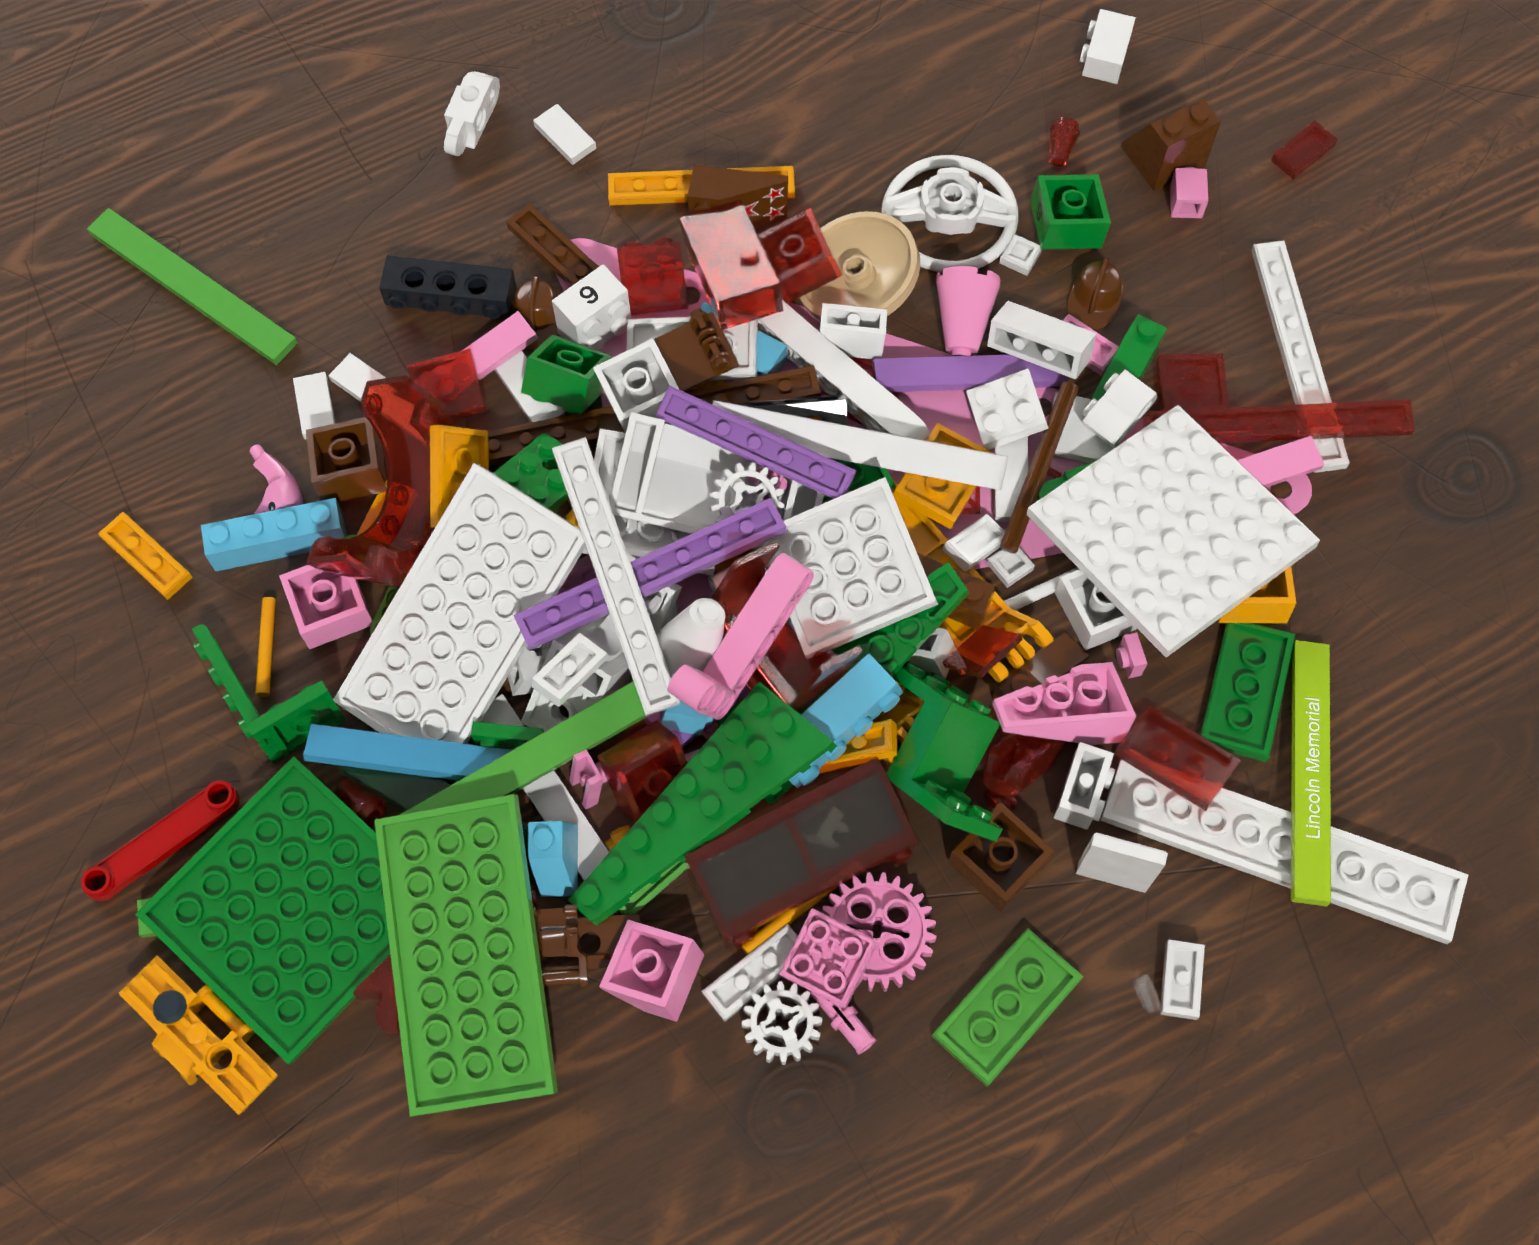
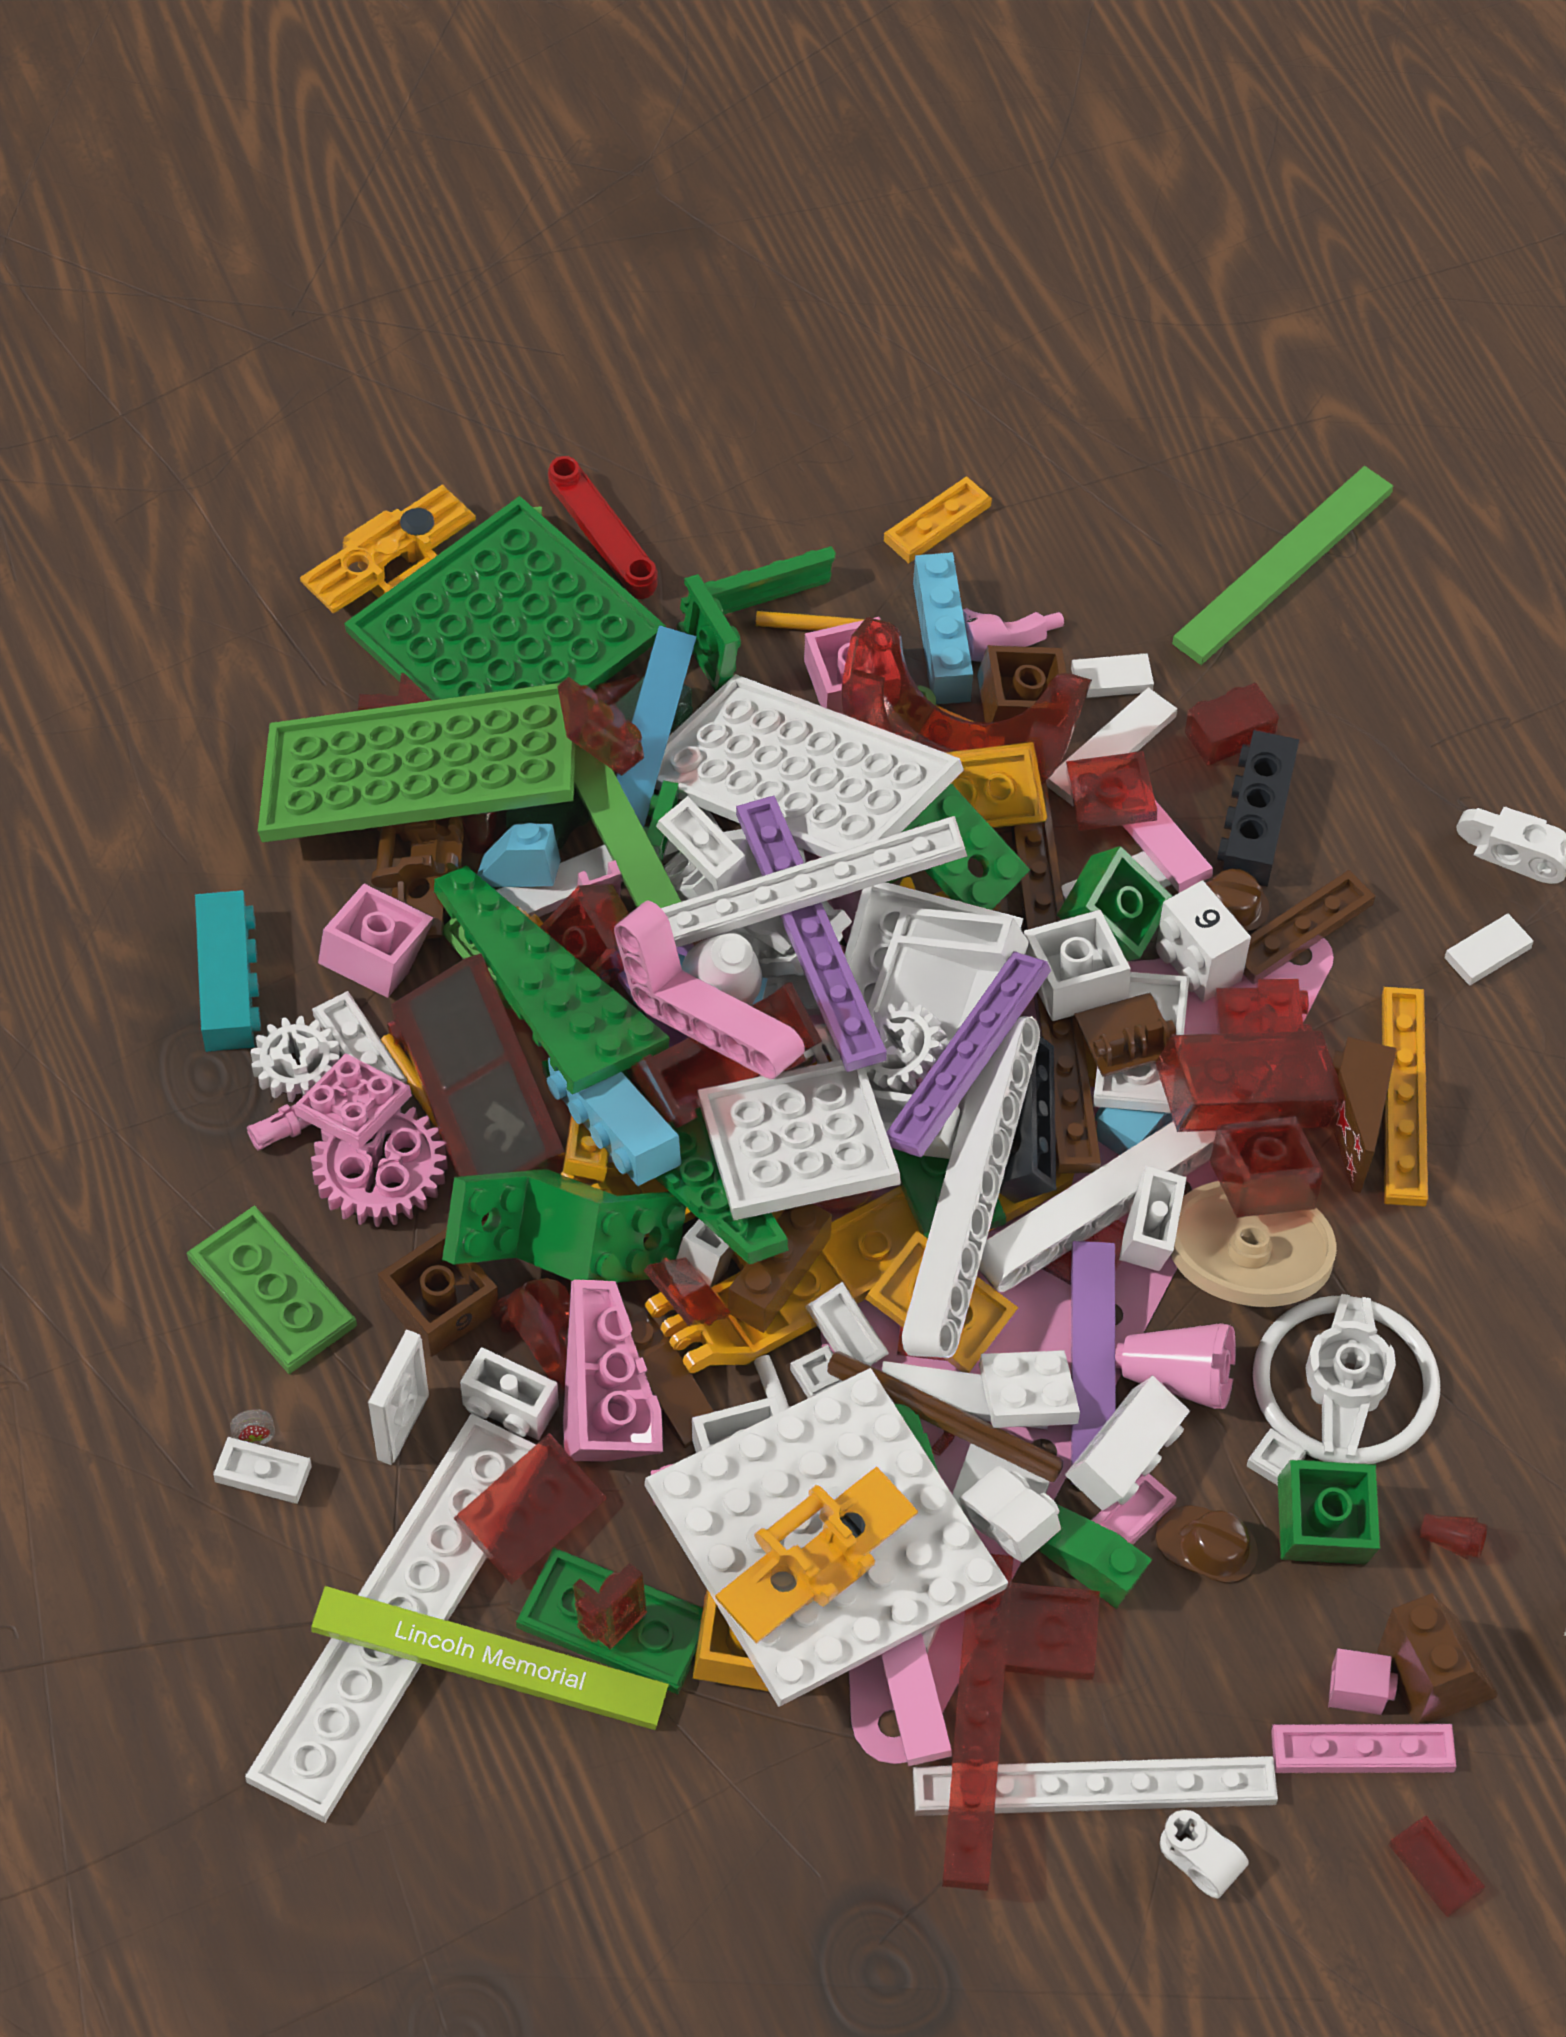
camera: 95 degrees right, 10 degrees down
(364, 311) = (1227, 722): none -> clear red brick
(435, 787) = (599, 727): none -> clear red plate
(695, 1104) = (224, 971): none -> teal brick
(1214, 510) = (824, 1566): none -> light orange piece
(1232, 196) = (1363, 1748): none -> bright pink tile
(1264, 671) = (612, 1611): none -> clear red bracket
(1336, 283) = (1205, 1857): none -> white piece

